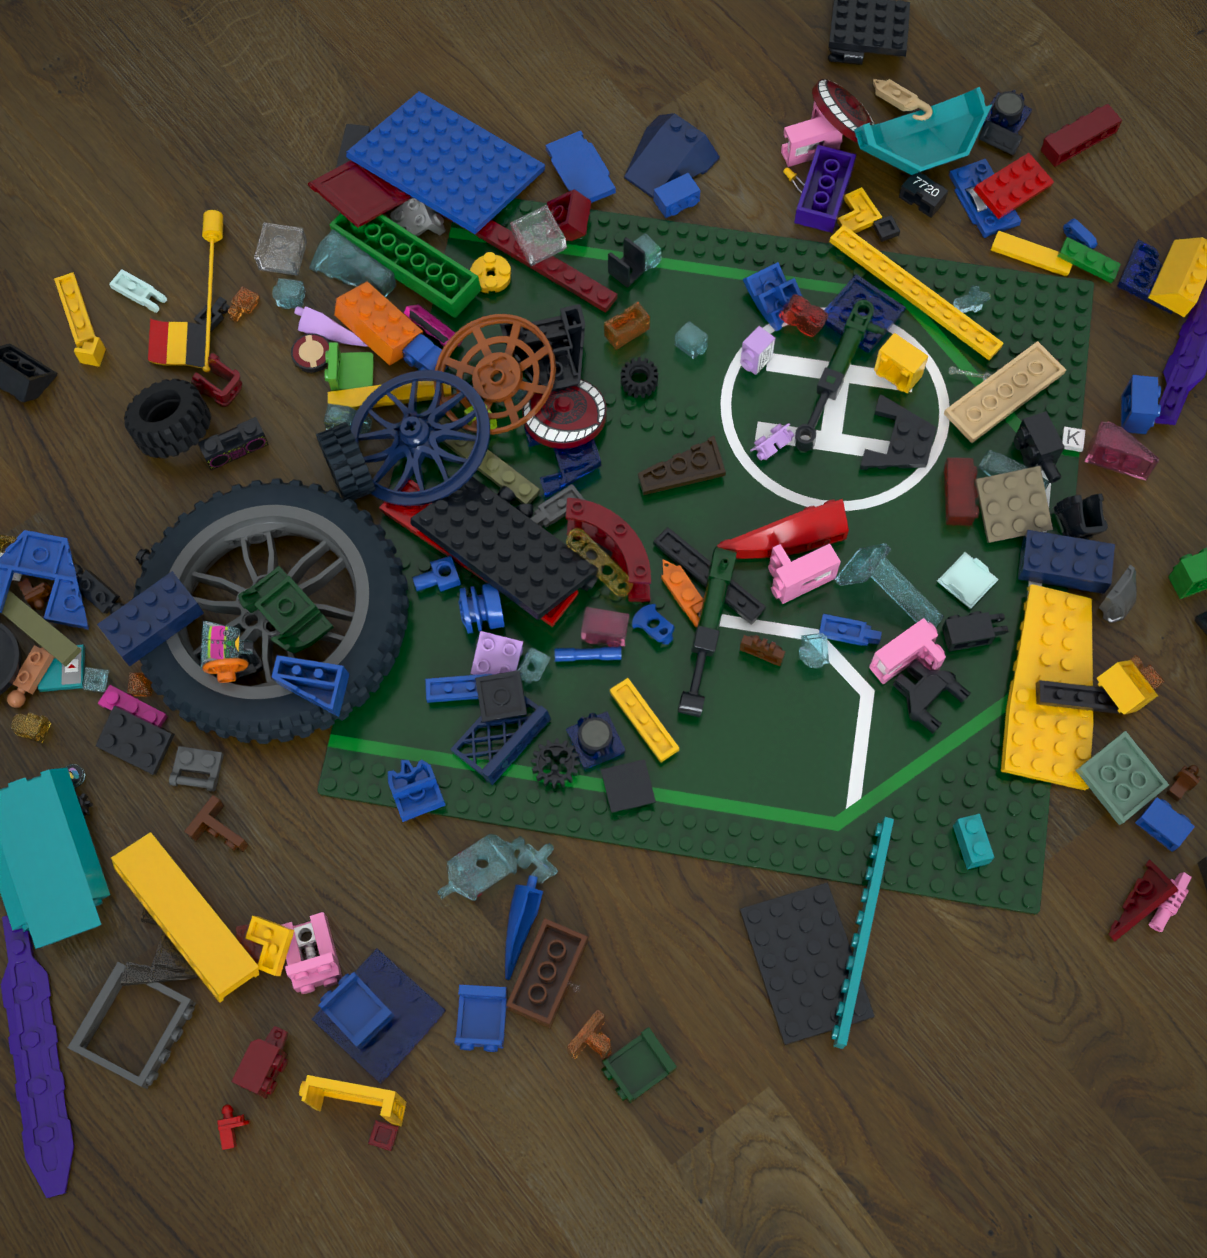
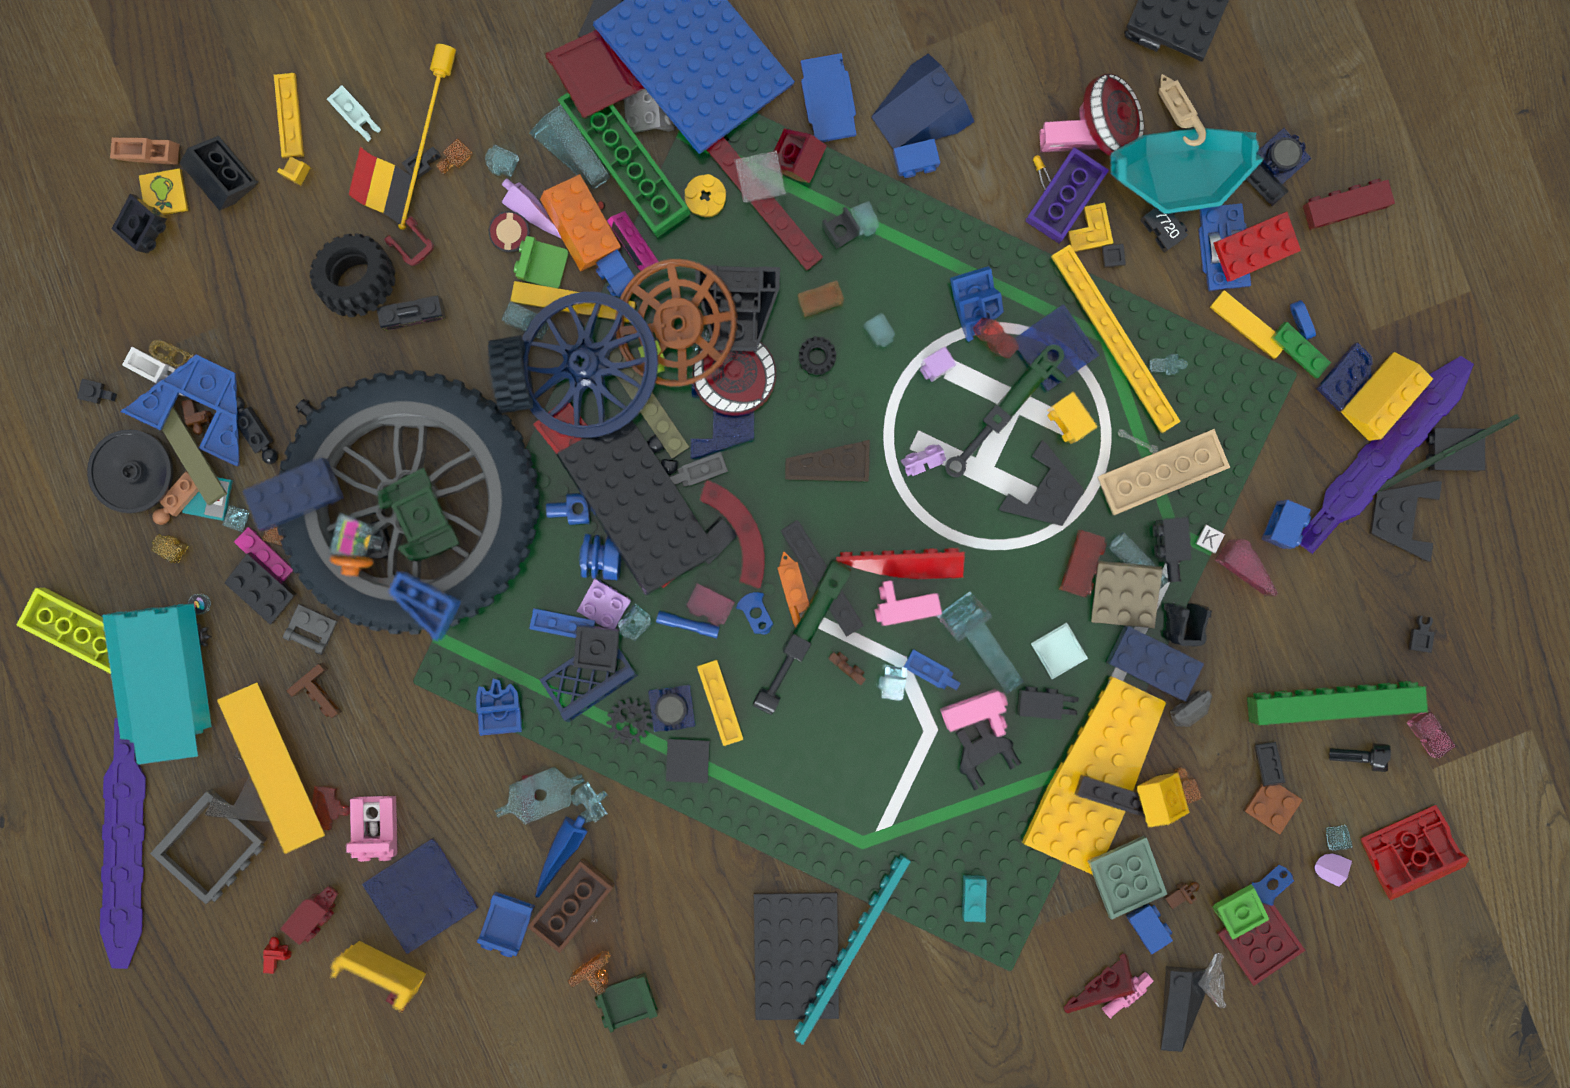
camera: 15 degrees right, 20 degrees up
(275, 941) = (344, 814): yellow plate -> none
(280, 248) = (504, 108): clear brick -> none
(356, 1010) = (400, 891): blue panel -> none
(602, 559) = (720, 544): clear yellow beam -> none

